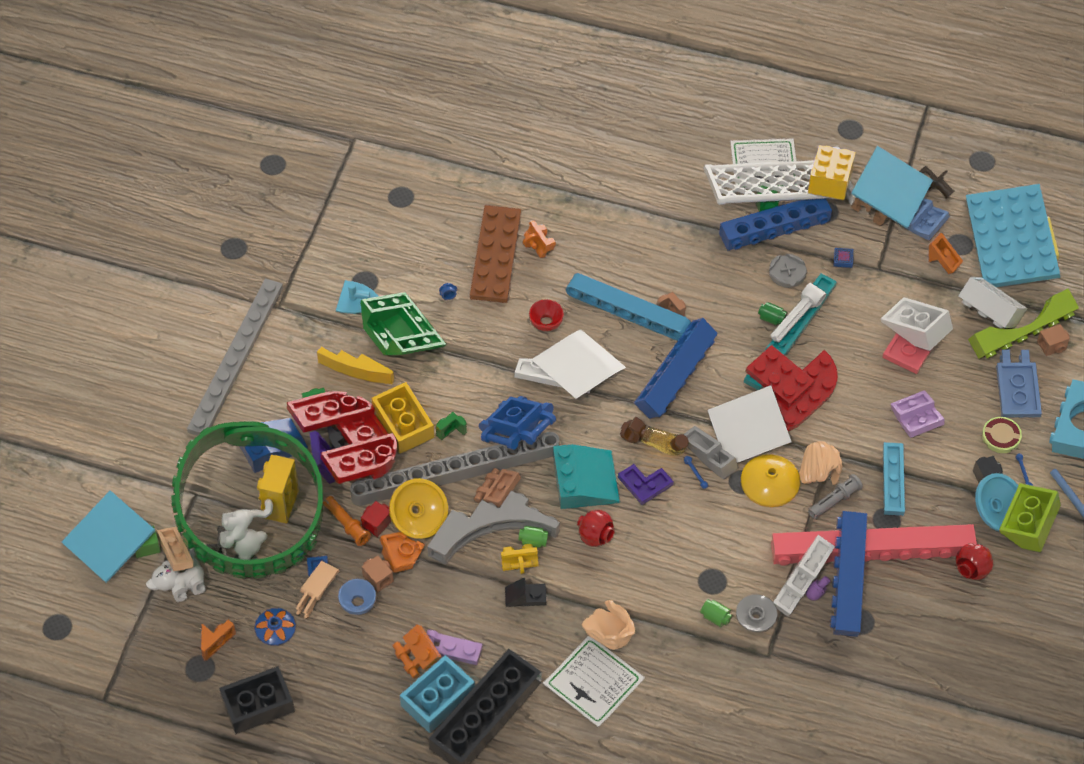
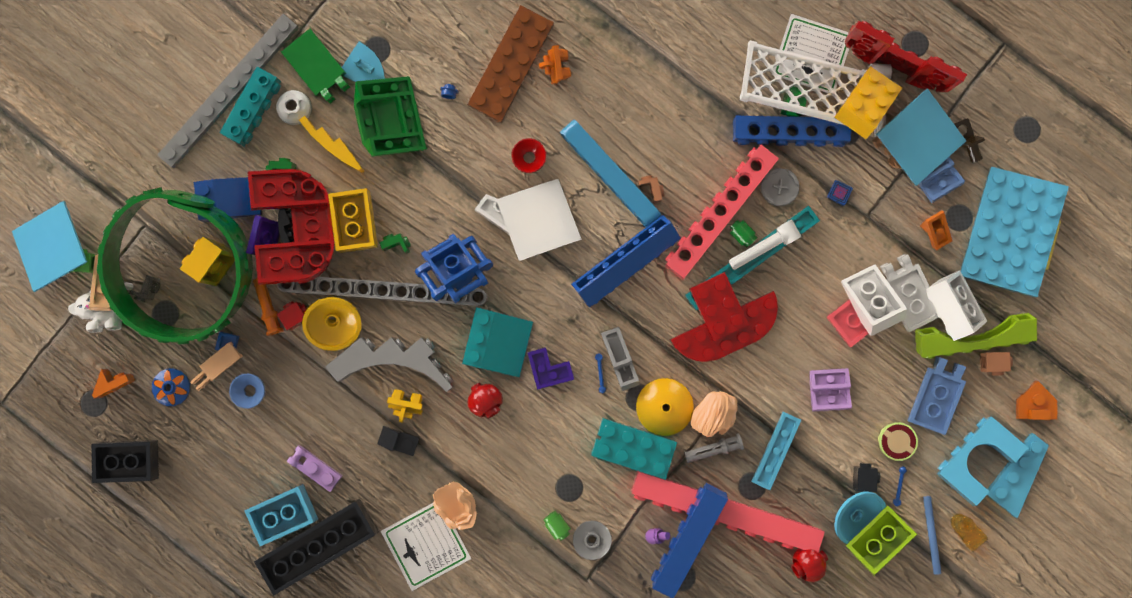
camera: 25 degrees right, 30 degrees up
(245, 541) = (160, 291): white animal -> none
(264, 360) = (251, 106): none -> teal brick
(303, 357) = (303, 107): none -> white piece
(313, 310) = (315, 65): none -> green tile
(378, 573) = (274, 372): nougat brick -> none
(400, 551) = (304, 357): orange plate -> none
(422, 648) = (284, 463): orange plate -> none
(497, 486) = (415, 328): nougat plate -> none
(533, 535) = (426, 387): bright green brick -> none
(659, 439) = (581, 330): piece -> none
(749, 289) = (766, 161): none -> coral brick
(750, 424) = (668, 347): white sticker -> none
(756, 518) = (634, 448): none -> teal piece
(803, 575) = (649, 521): white slope -> none
(809, 129) = (878, 45): none -> red plate
(964, 319) = (911, 288): none -> white tile

